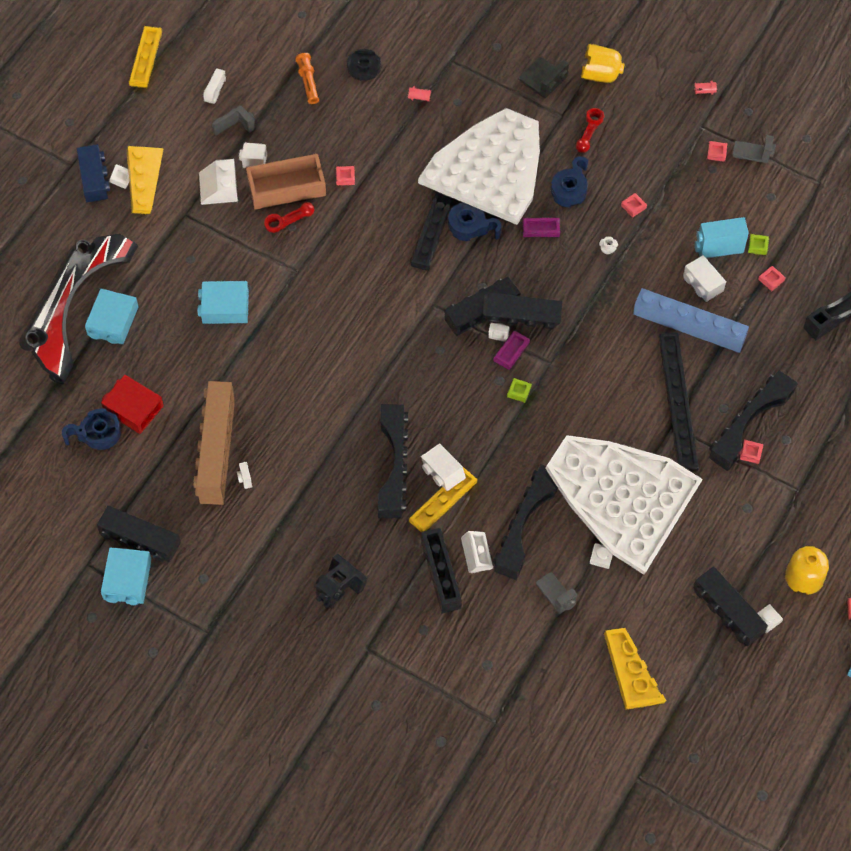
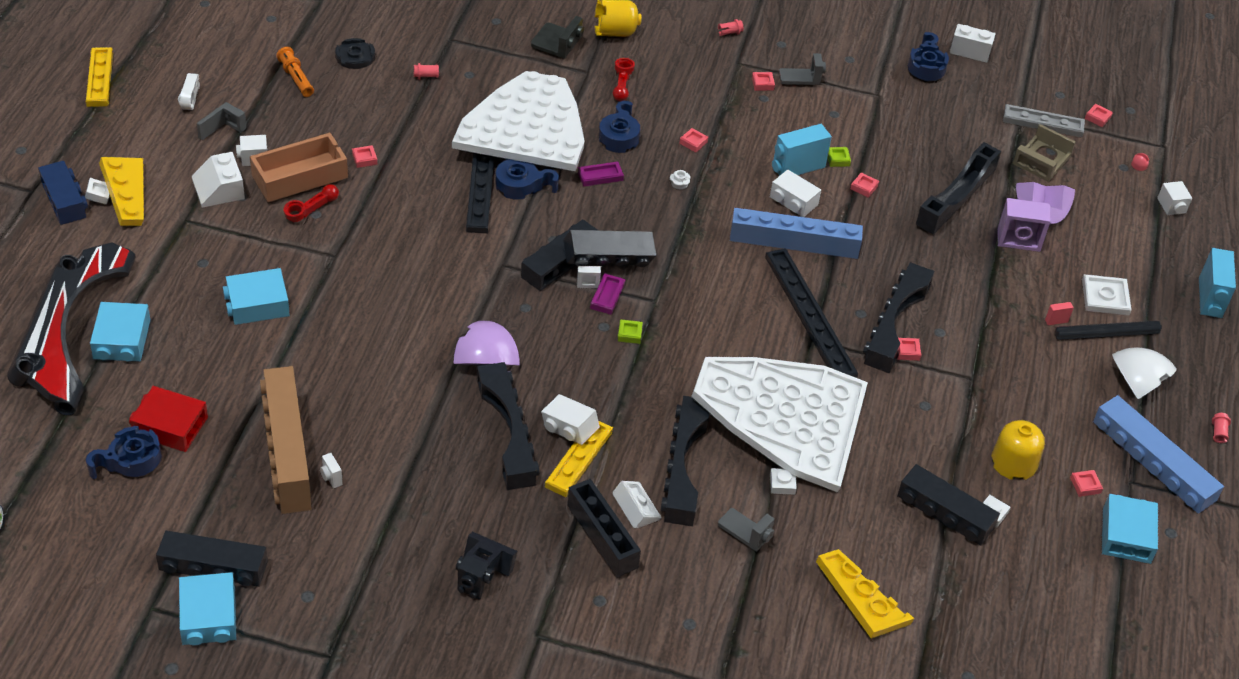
camera: 20 degrees left, 15 degrees down
(394, 385) = (486, 344): none -> lavender brick

